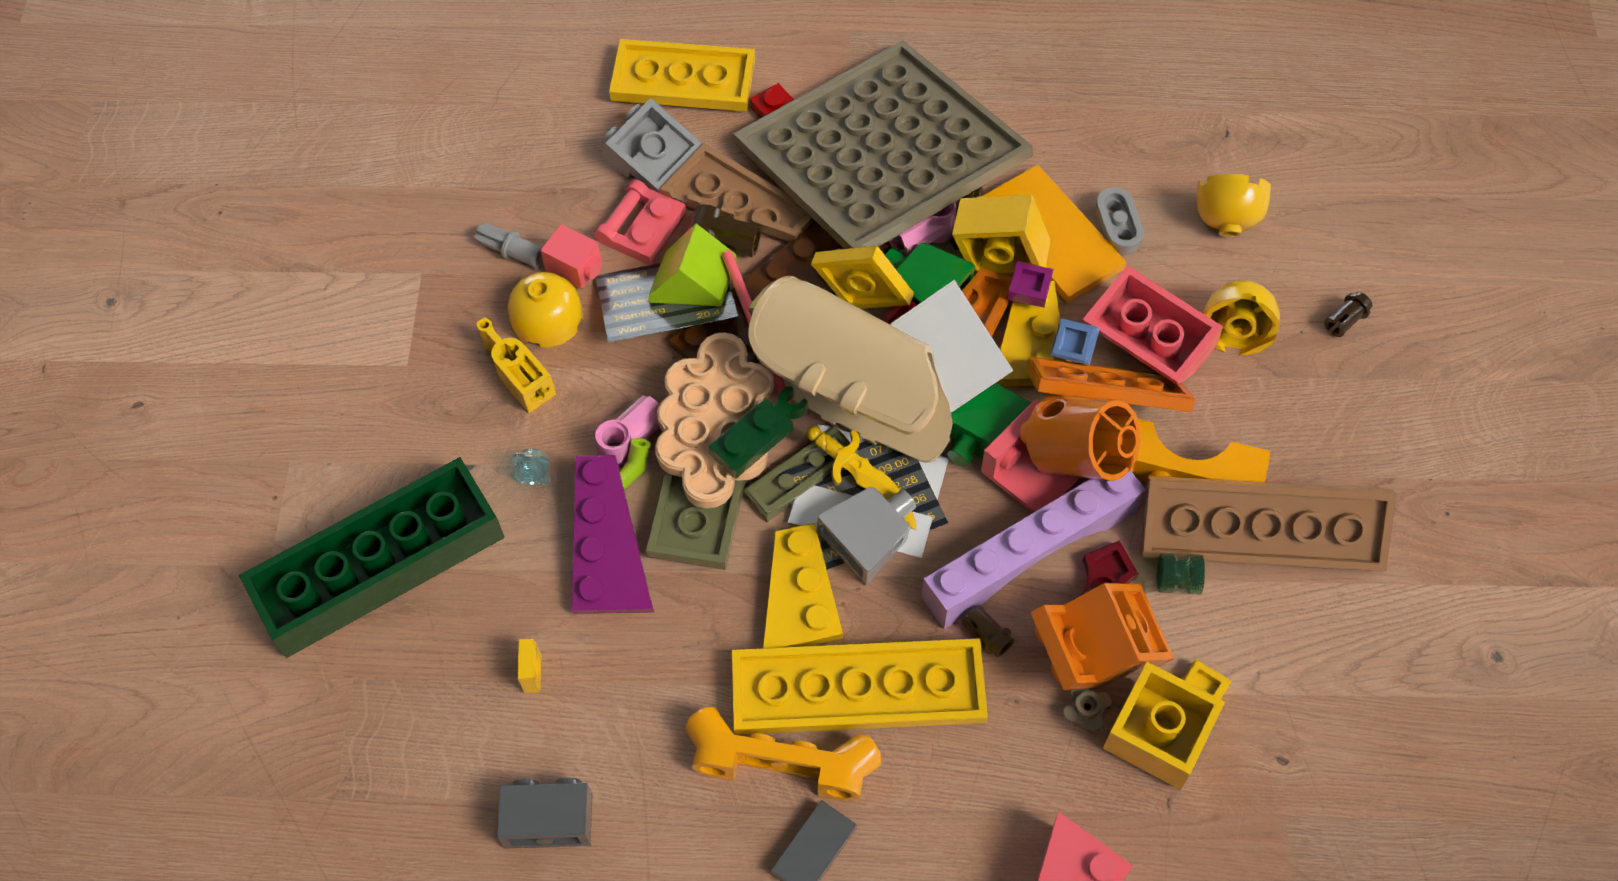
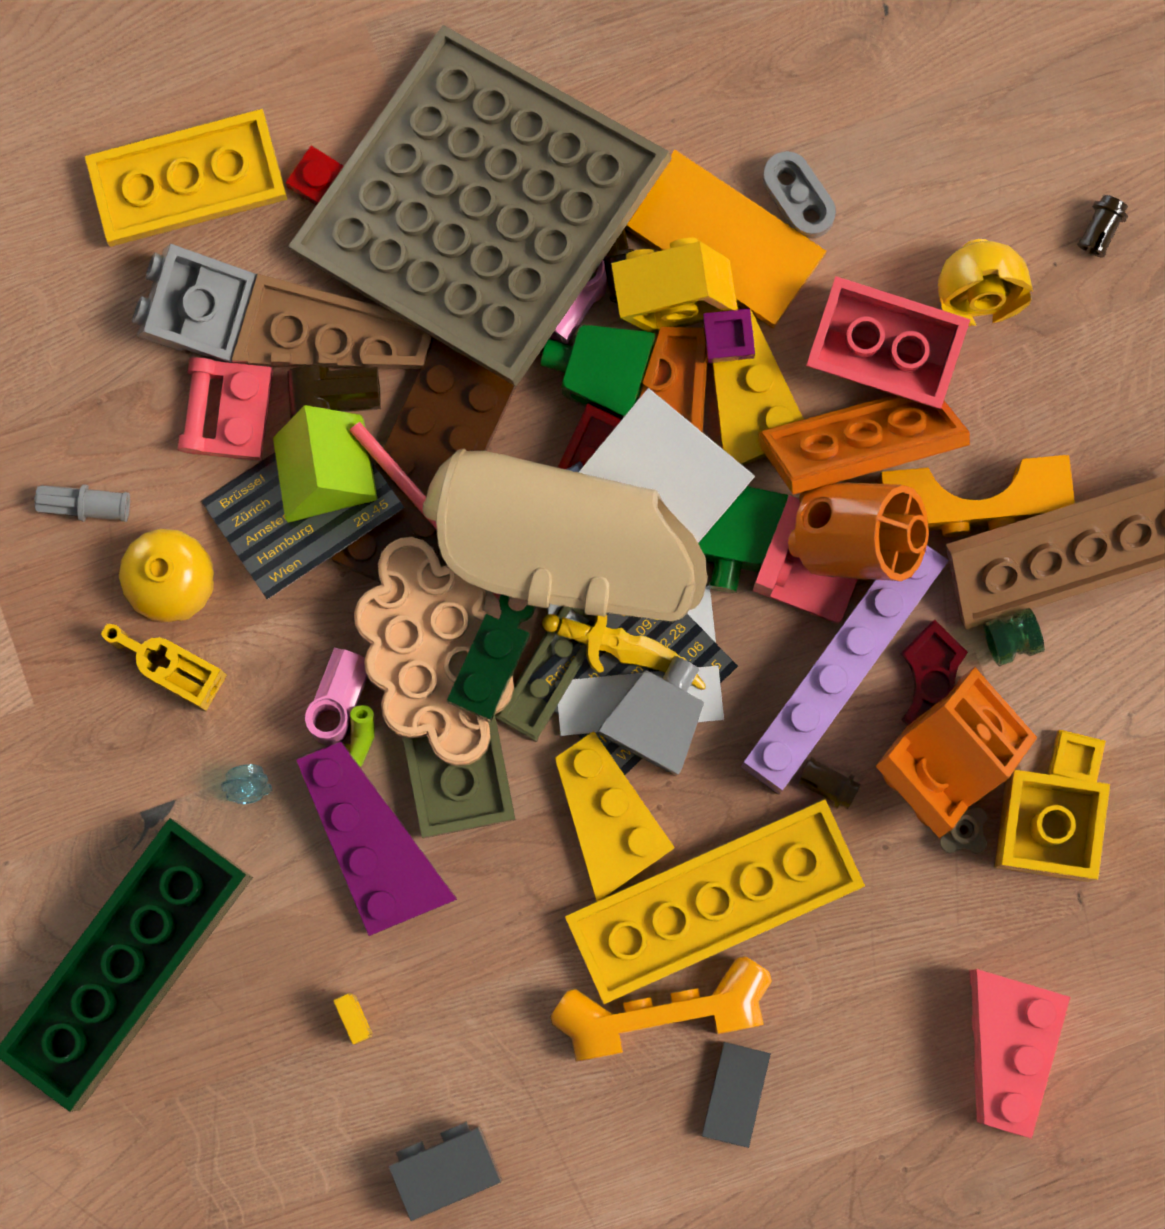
camera: 20 degrees left, 20 degrees up
(572, 256) = (170, 497): coral brick -> none
(863, 277) = (533, 408): yellow plate -> none
(1075, 341) = (807, 396): medium blue tile -> none
(1232, 203) = (927, 129): yellow cylinder -> none

